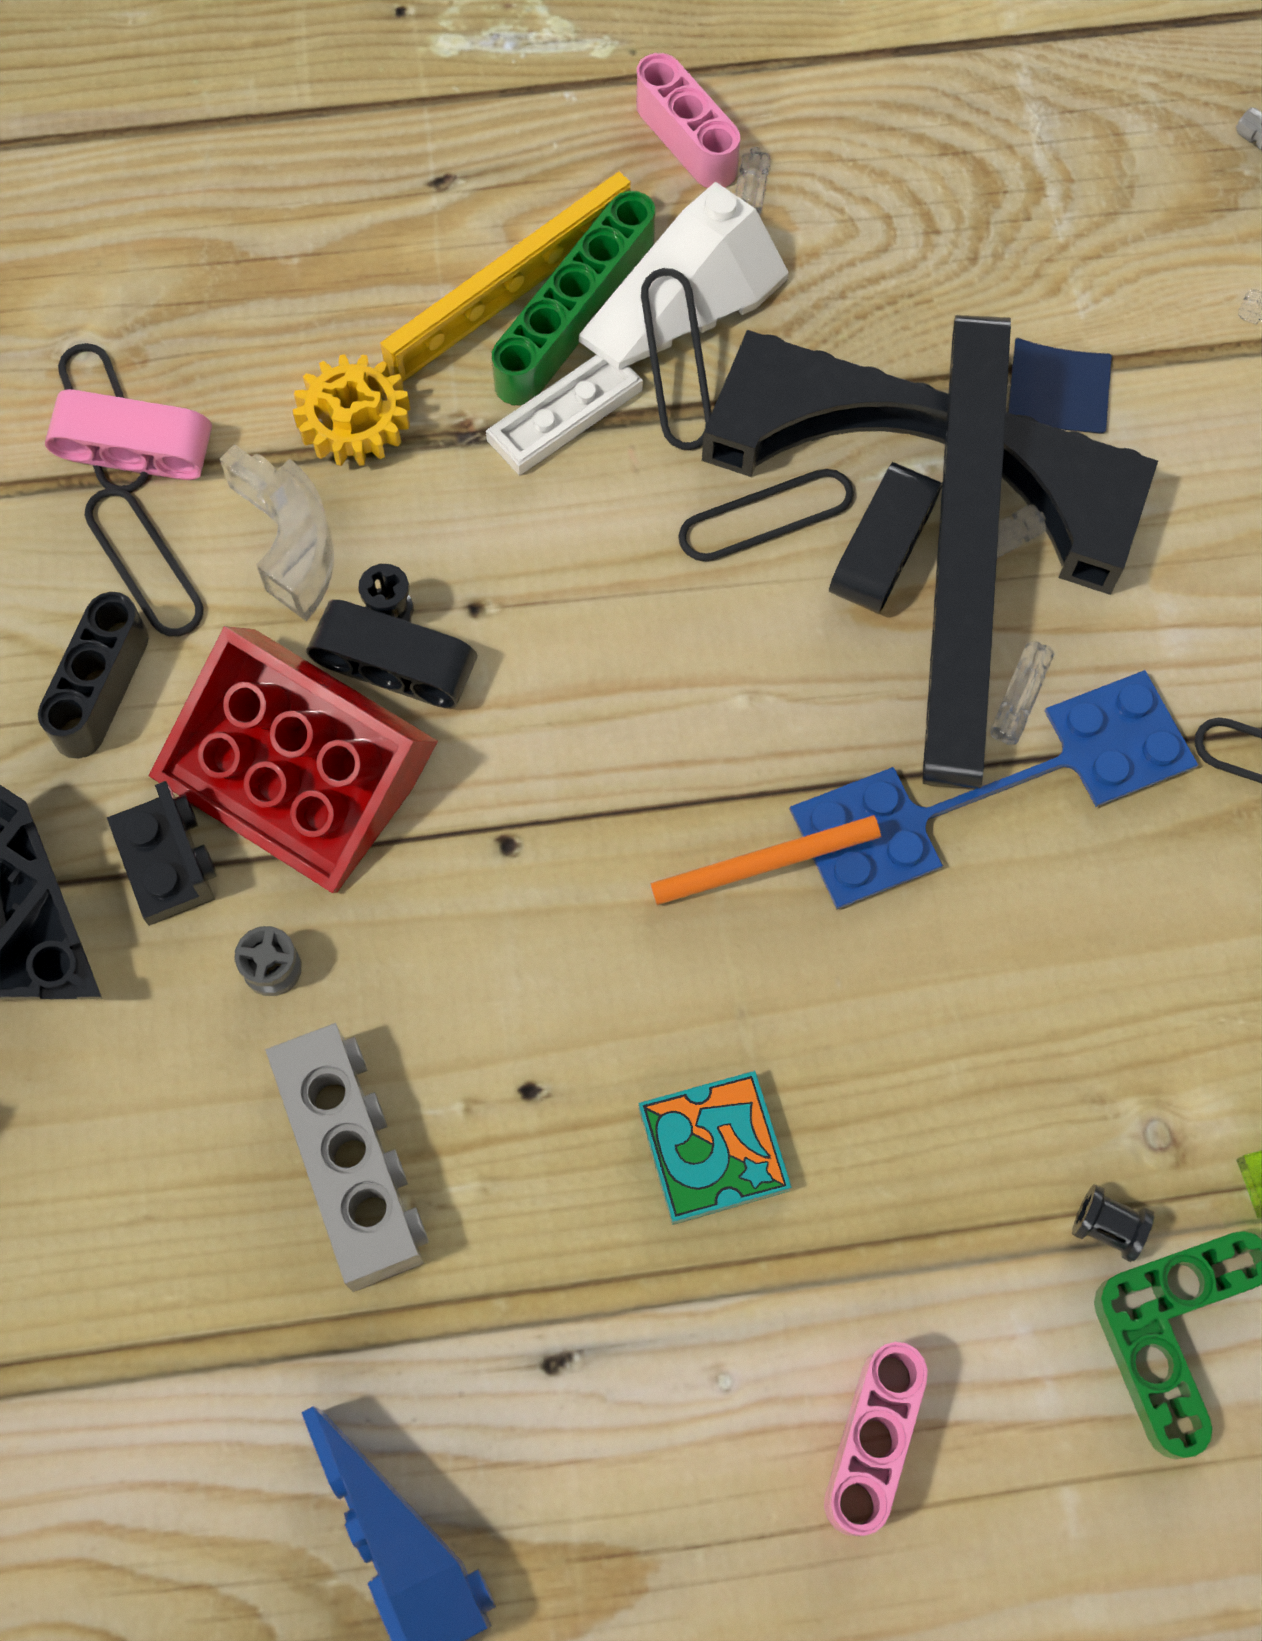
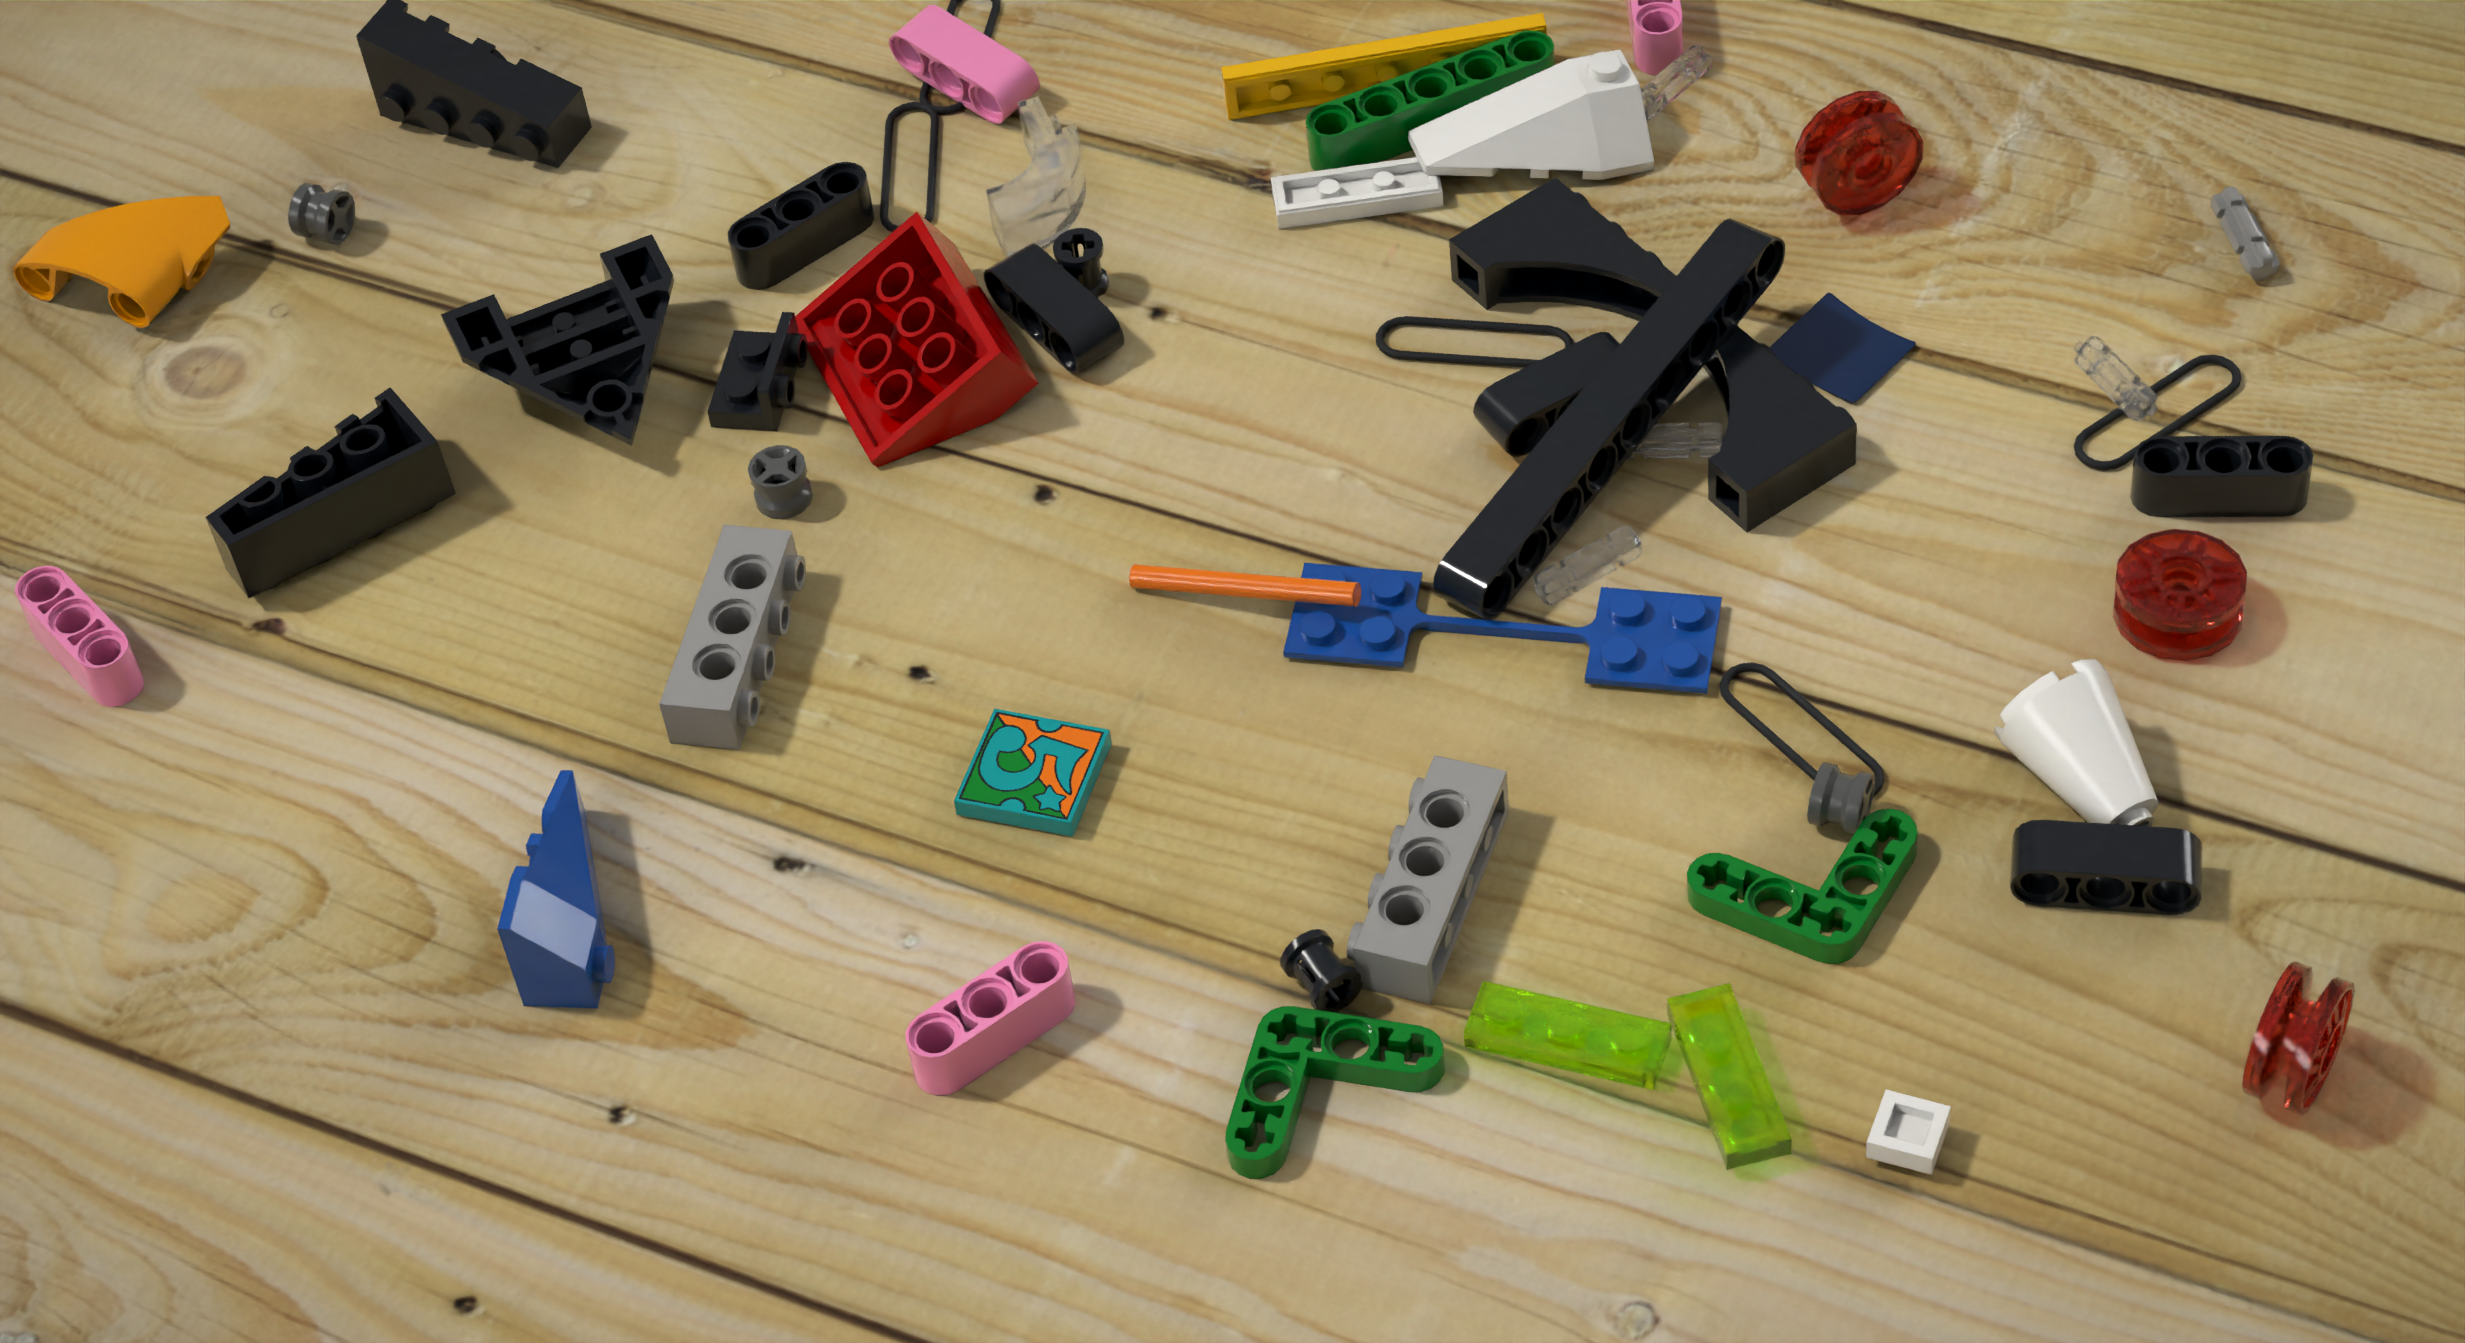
camera: 40 degrees right, 20 degrees down
(351, 409) = (1165, 116): yellow gear -> none
(654, 356) = (1463, 164): black piece -> none
(972, 199) = (1859, 152): none -> clear red wheel
(1123, 986) = (1429, 879): none -> light grey brick

